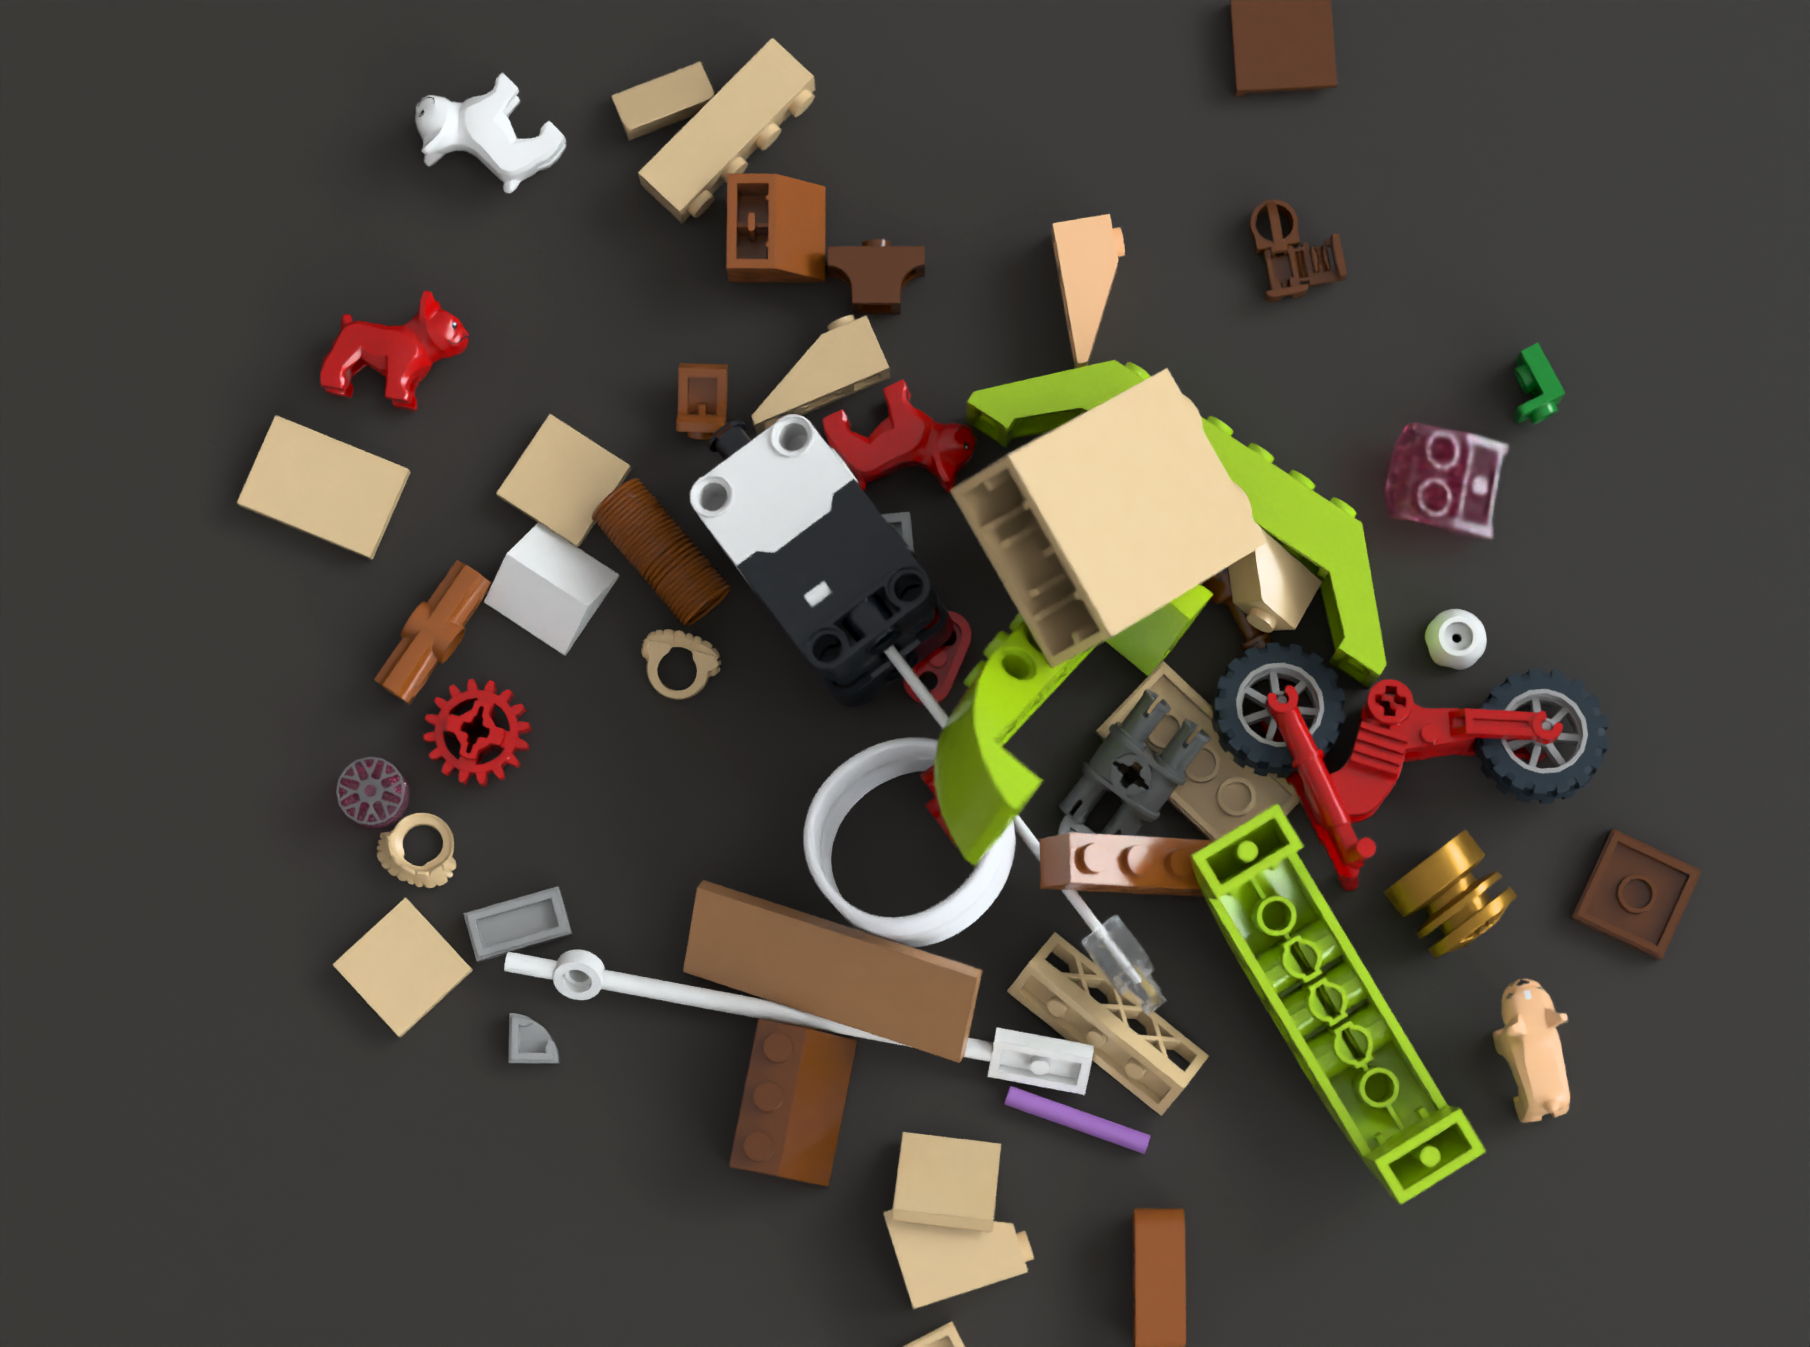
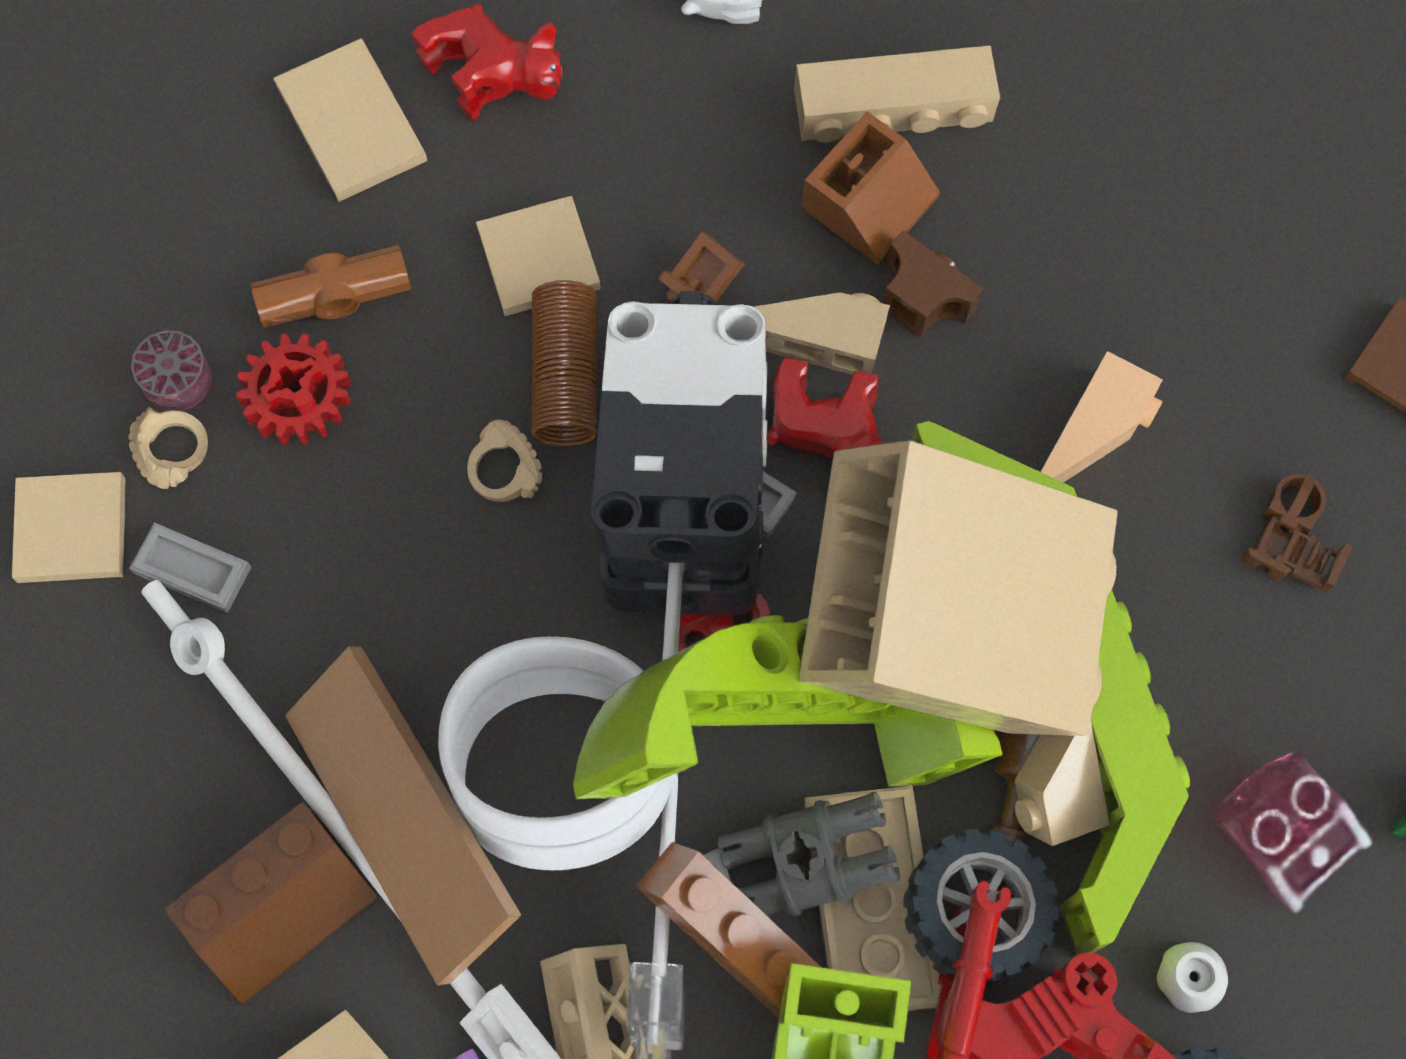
camera: 35 degrees right, 10 degrees down
(530, 1042) = (112, 671): light grey tile -> none
(550, 587) = (454, 325): white slope -> none
(663, 100) = (857, 37): tan slope -> none

